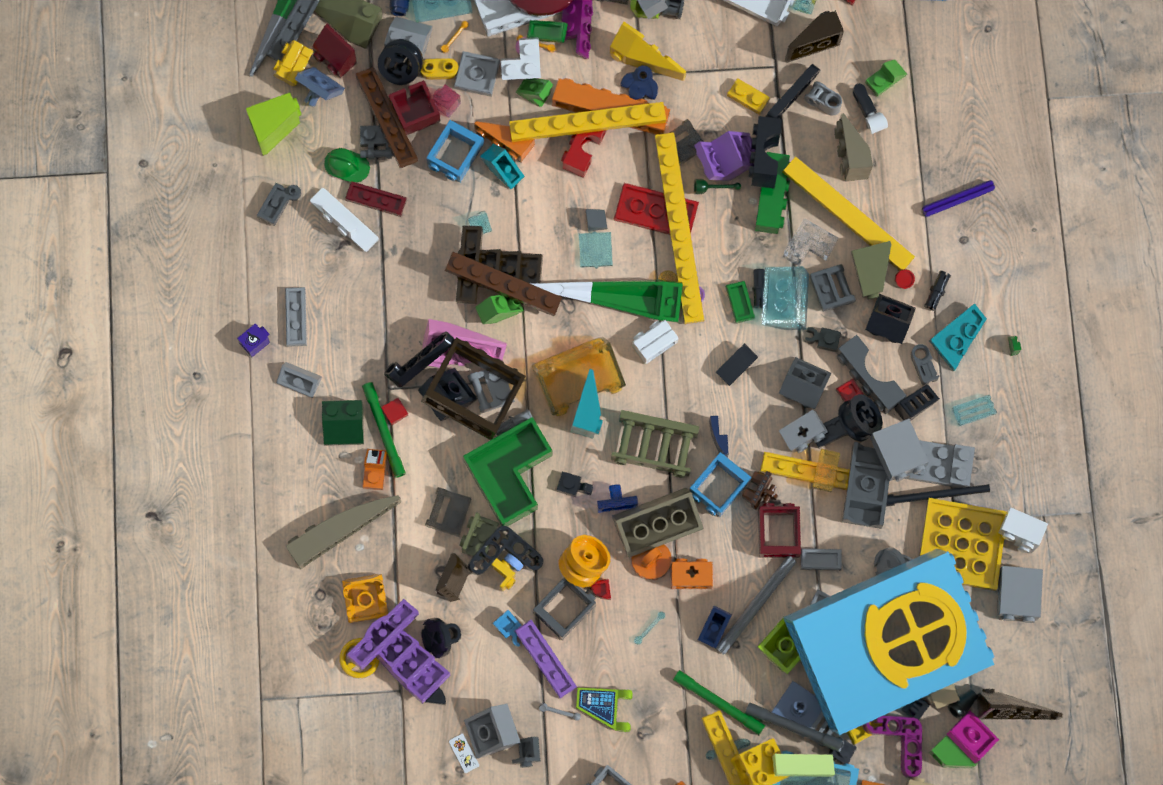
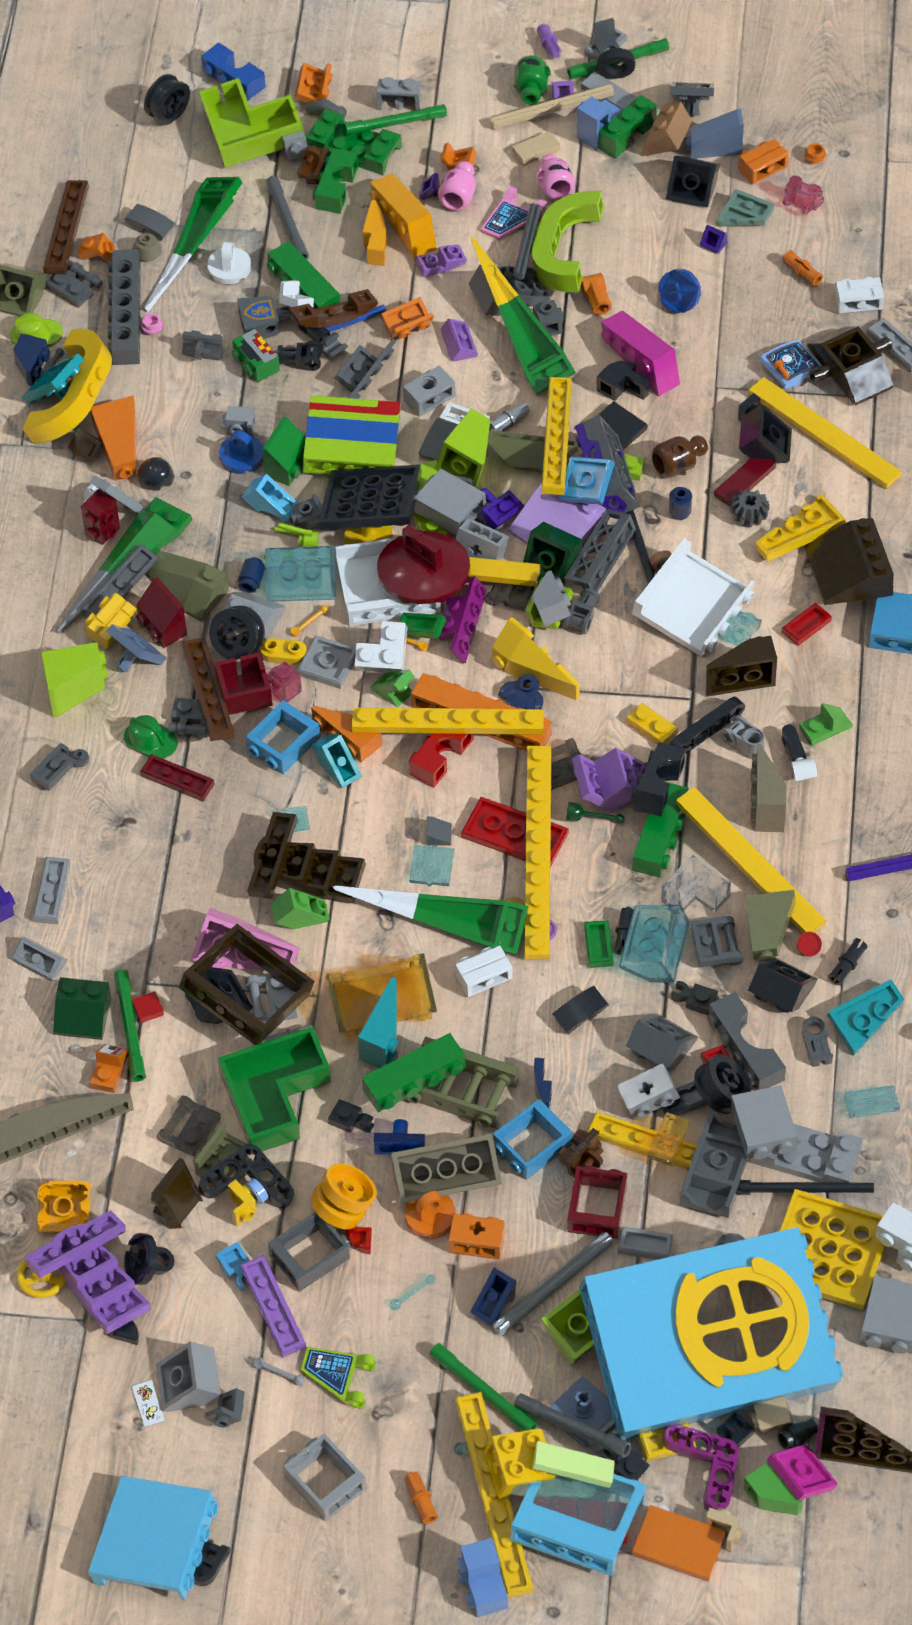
camera: 15 degrees right, 20 degrees down
(345, 221) = (133, 794): white bracket -> none
(403, 374) = (161, 965): black beam -> none
(503, 284) = (308, 879): reddish brown plate -> none
(620, 446) = (414, 1072): none -> green brick
(907, 411) = (801, 1090): black slope -> none

